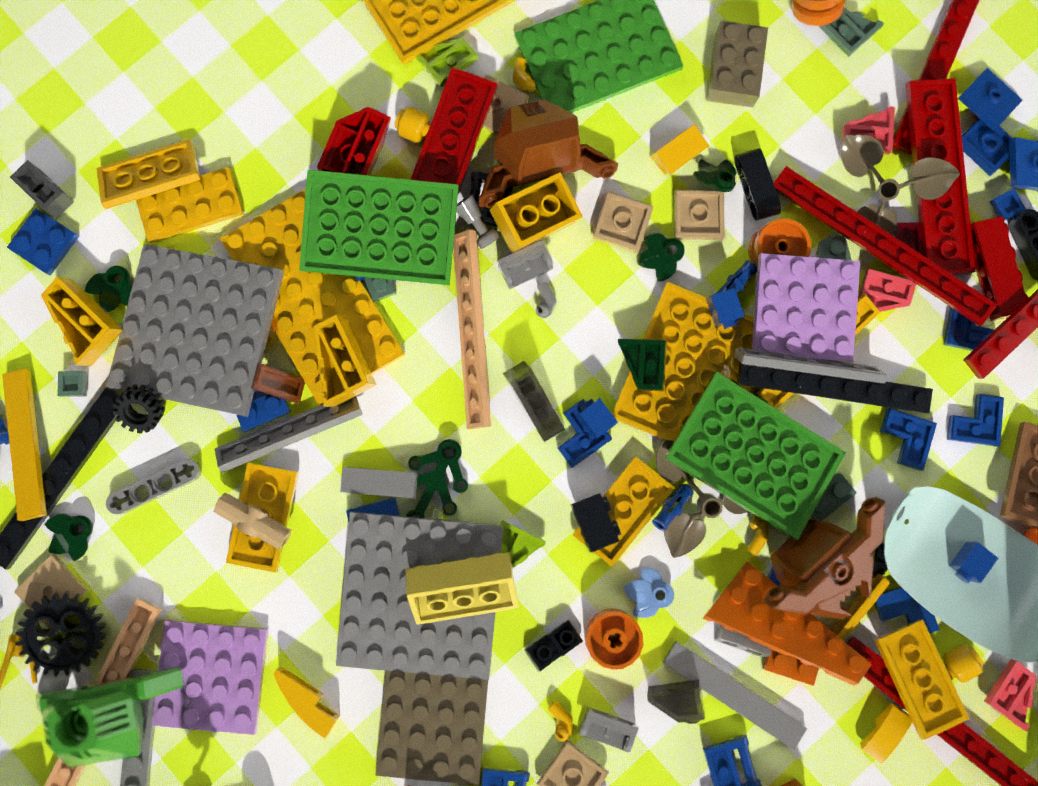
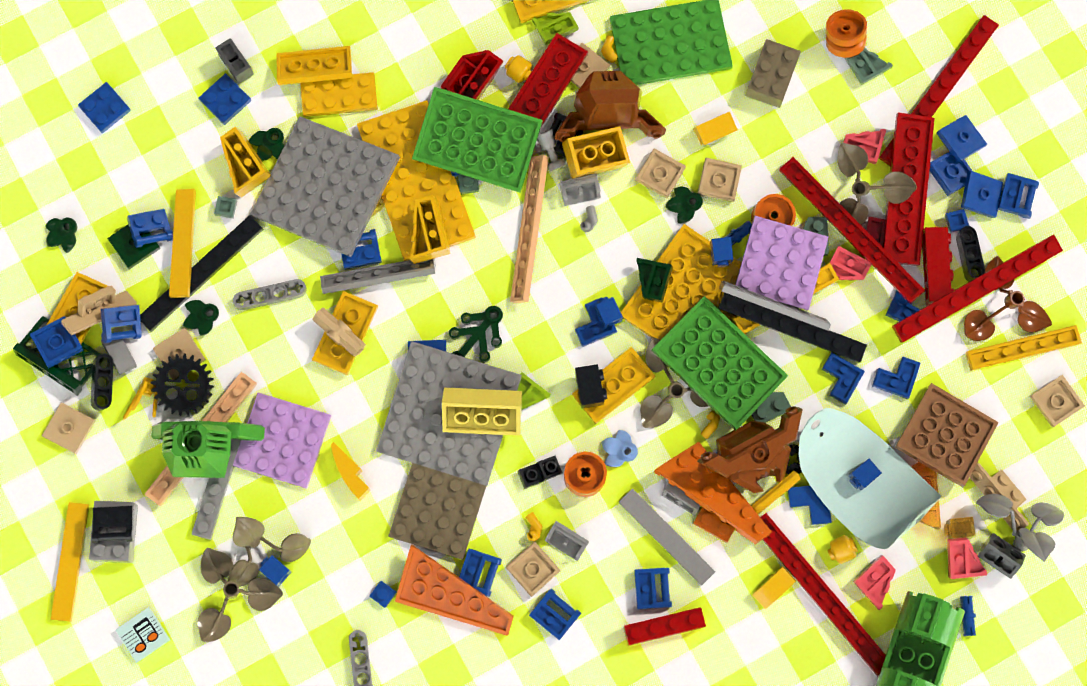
camera: 15 degrees right, 5 degrees down
(132, 418) = (279, 227): black tyre -> none
(278, 383) = (378, 238): dark orange tile -> none
(379, 482) = (436, 326): light grey tile -> none
(534, 400) = (564, 291): clear smoke slope -> none
(664, 518) = (650, 389): blue pin -> none
(679, 700) = (625, 530): clear smoke slope -> none
(719, 177) = (741, 155): dark green plate -> none
(757, 184) = (768, 166): black beam -> none
(921, 679) = (807, 551): yellow plate -> none

